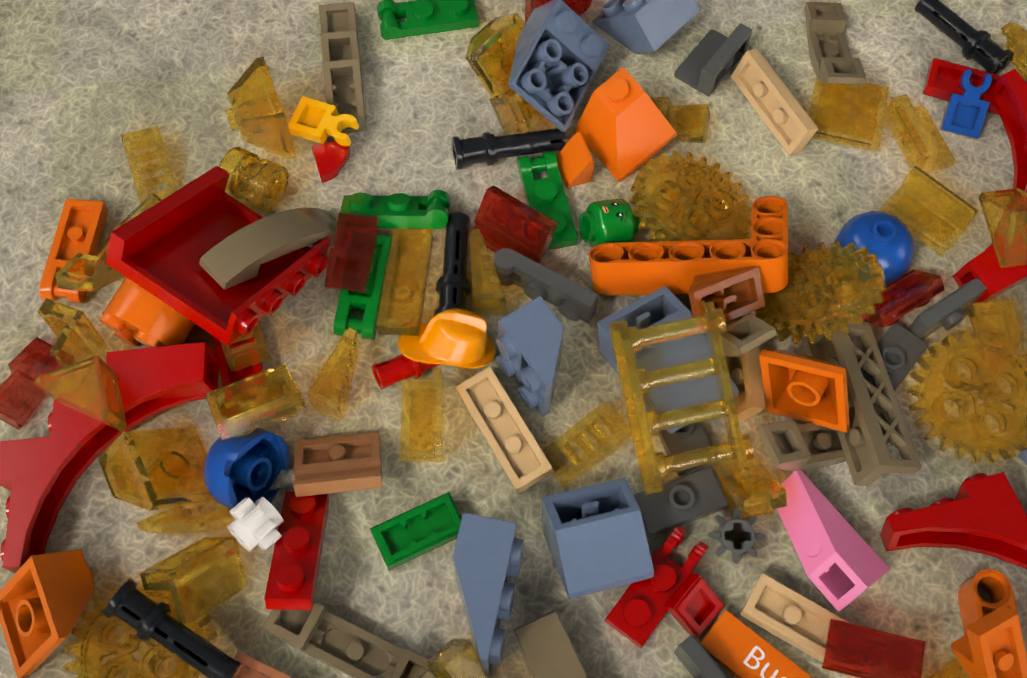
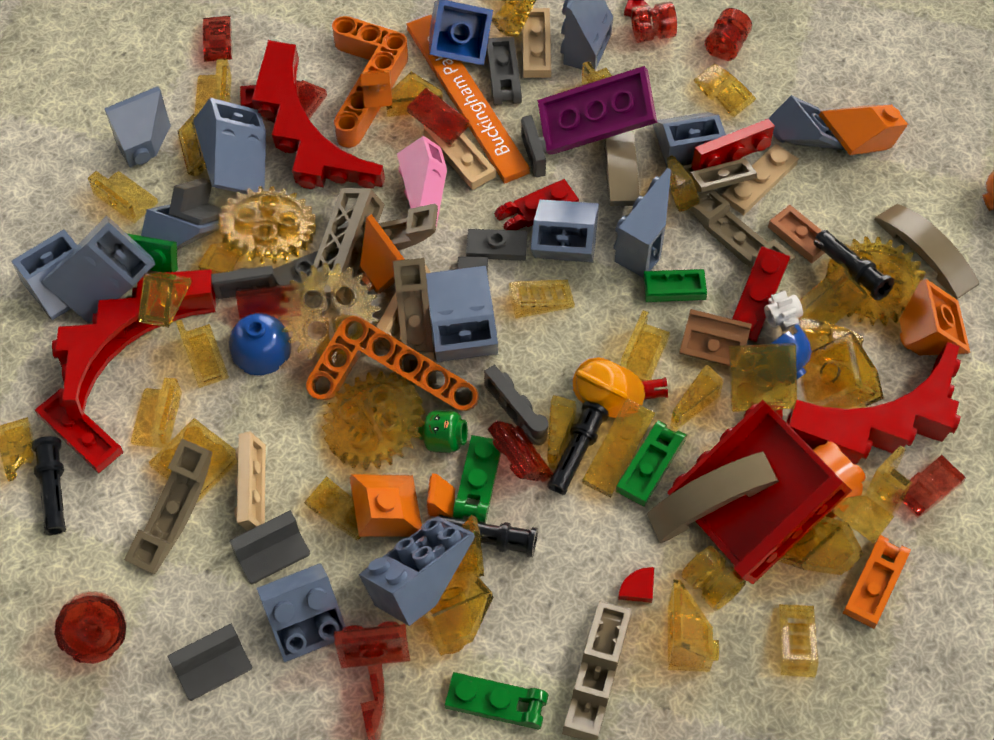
camera: 155 degrees left, 5 degrees down
(87, 388) = (884, 415): clear yellow slope -> none
(318, 119) = (638, 612): yellow plate -> none
(352, 252) = (653, 475): clear red slope -> none
(401, 210) = (605, 512): green plate -> none
(504, 430) = (591, 320): tan plate -> none
(531, 352) = (552, 347): sand blue slope -> none
(647, 424) = (496, 283): clear yellow fence -> none
(694, 605) = (521, 185): red tile -> none
(733, 290) = (405, 319): dark orange slope -> none
(743, 545) = (475, 207): dark grey gear -> none
(751, 492) = (450, 227): clear yellow slope -> none
(966, 112) = (107, 412): blue plate -> none

